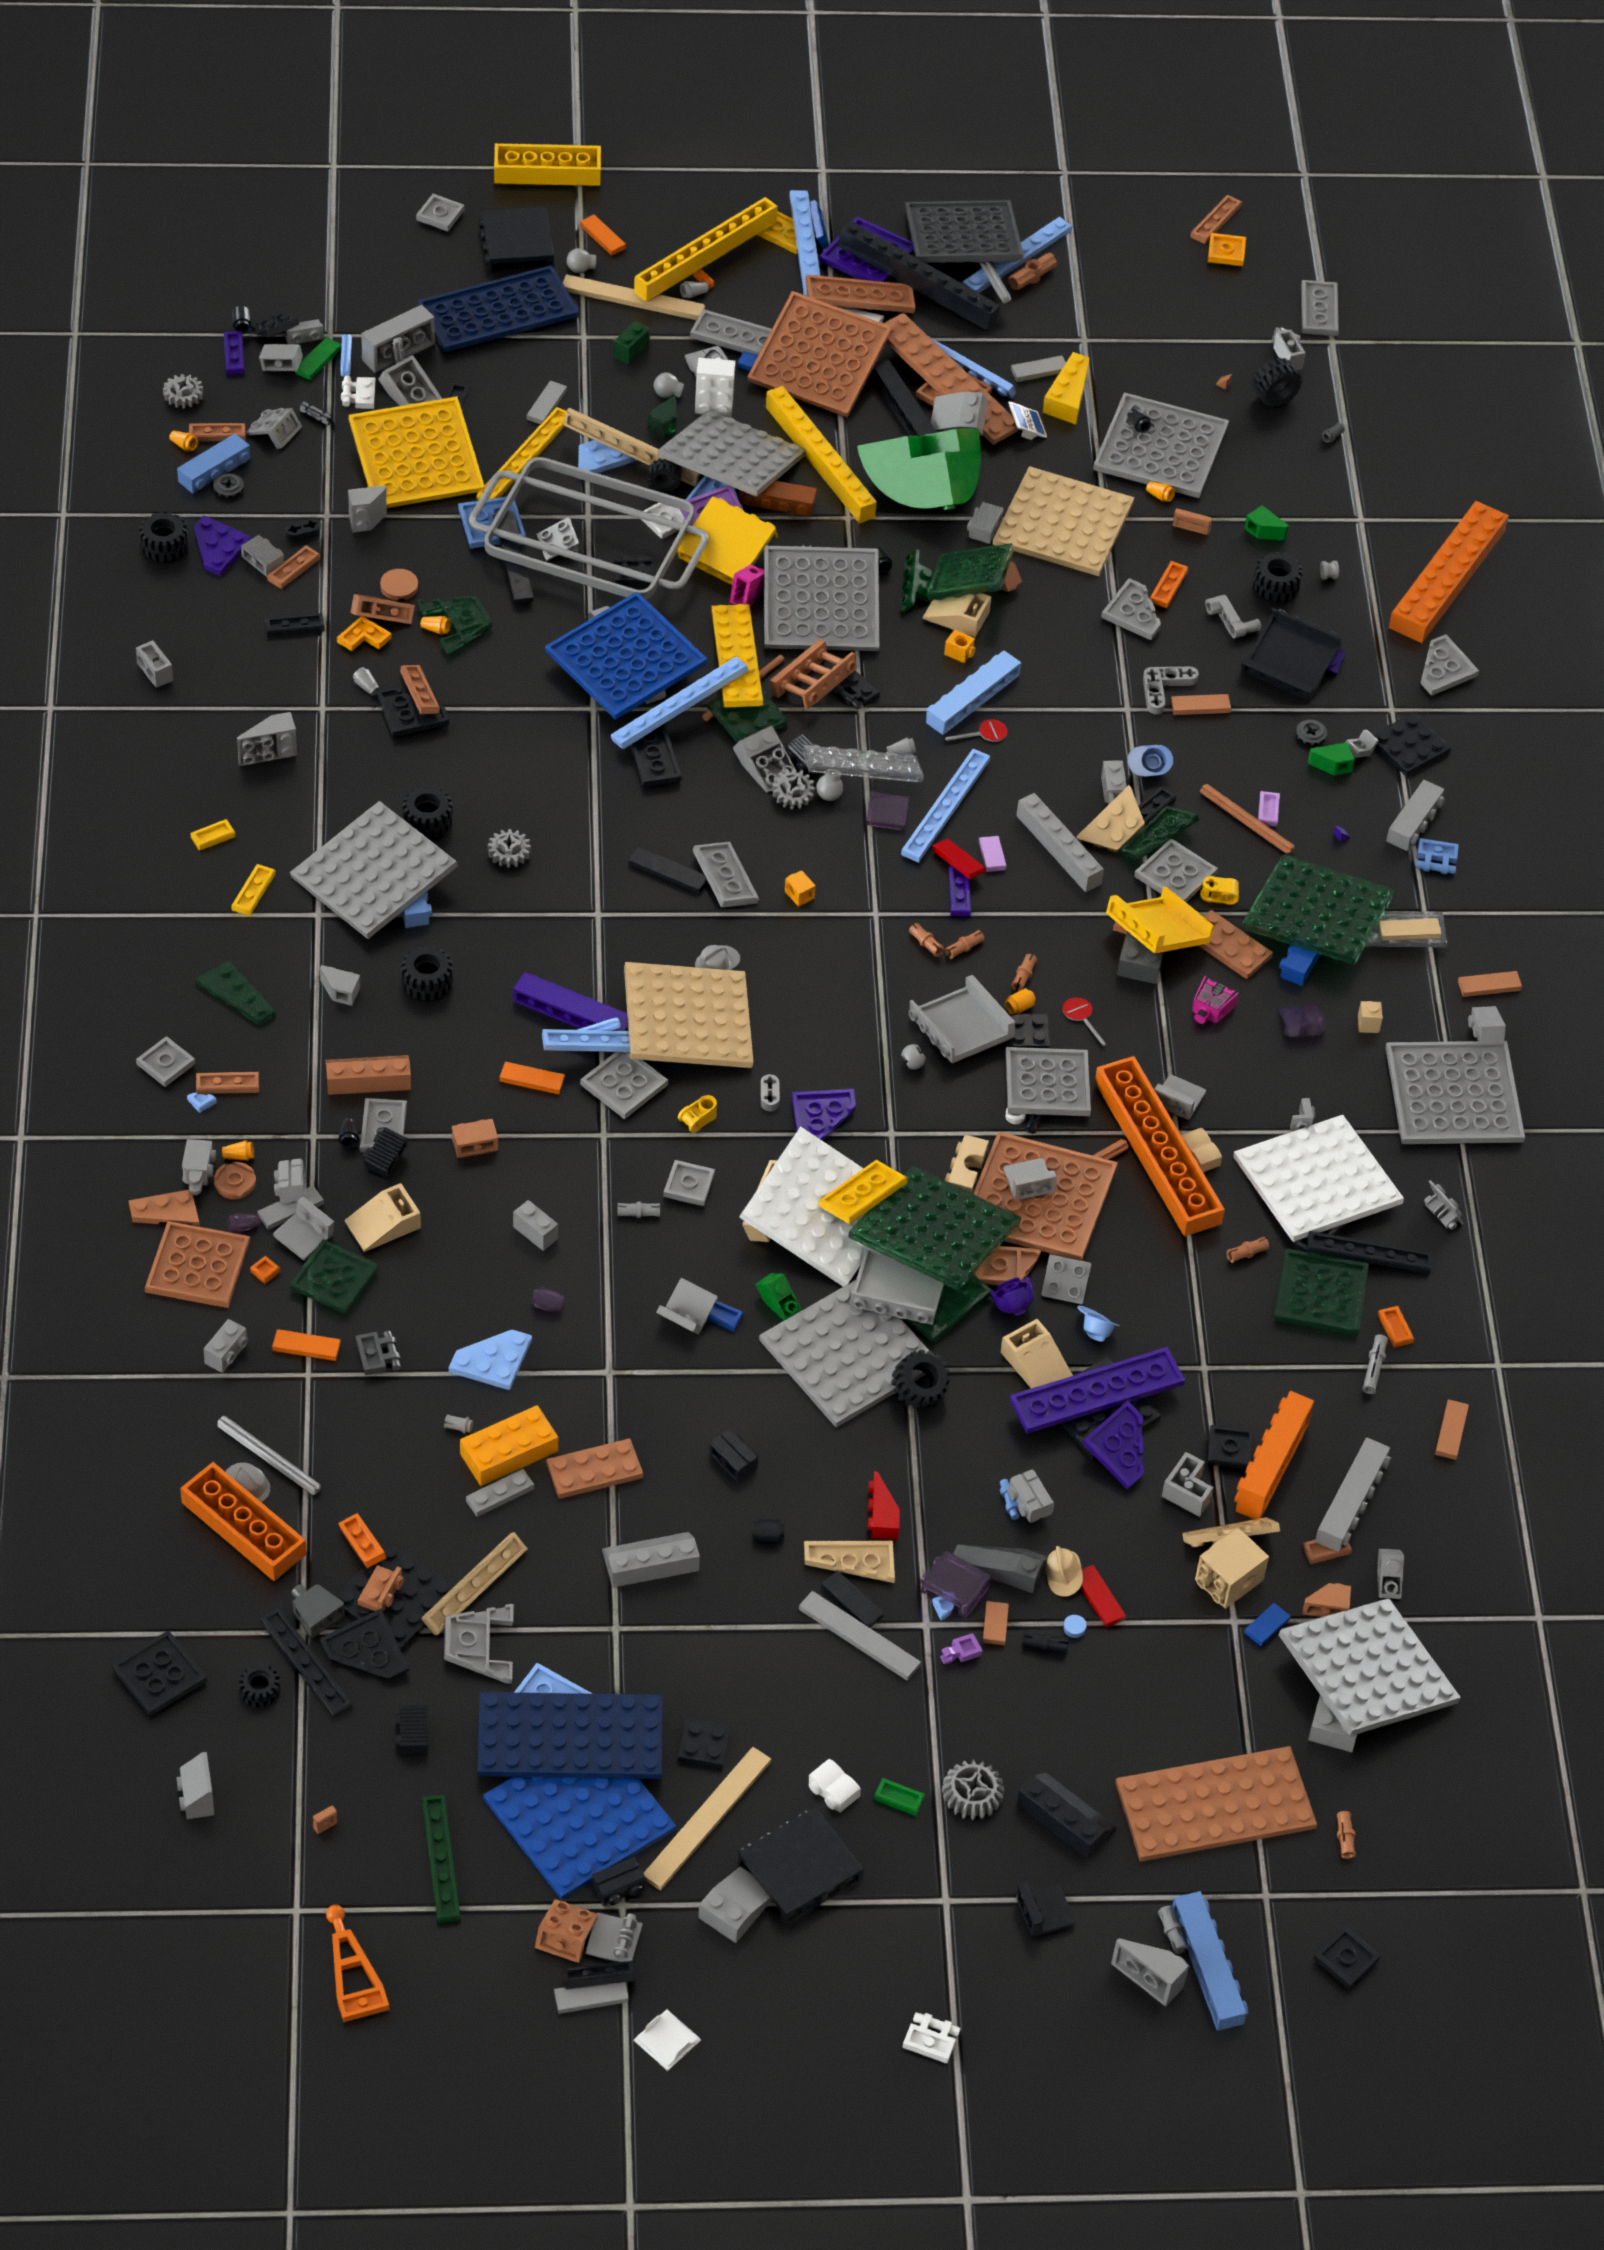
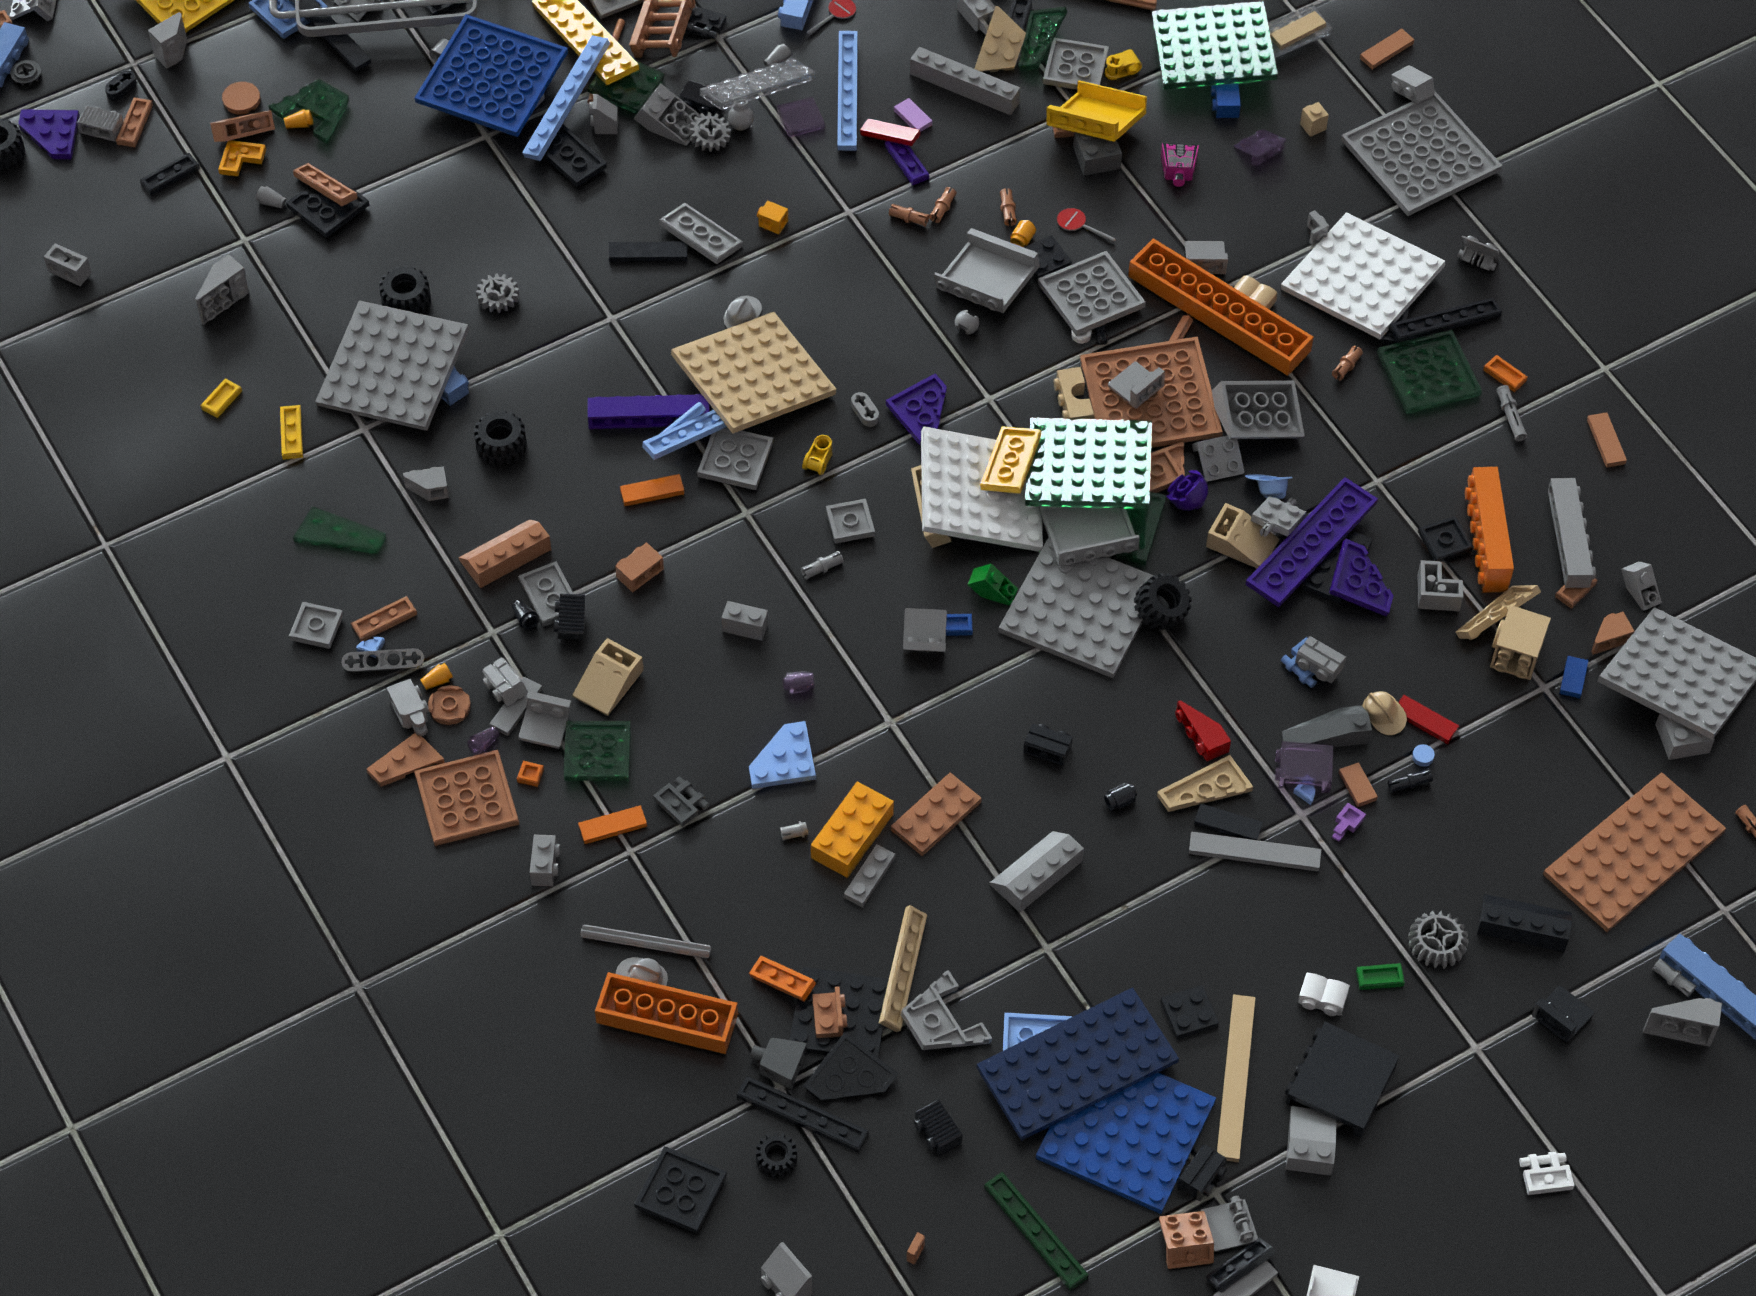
camera: 25 degrees left, 5 degrees up
(201, 1118) = (383, 660): none -> light grey beam
(705, 733) = (604, 116): none -> light grey slope
(1079, 1353) = (1278, 516): none -> light grey plate
(1128, 1251) = (1258, 409): none -> light grey slope
(1235, 947) = (1167, 108): nougat plate -> none

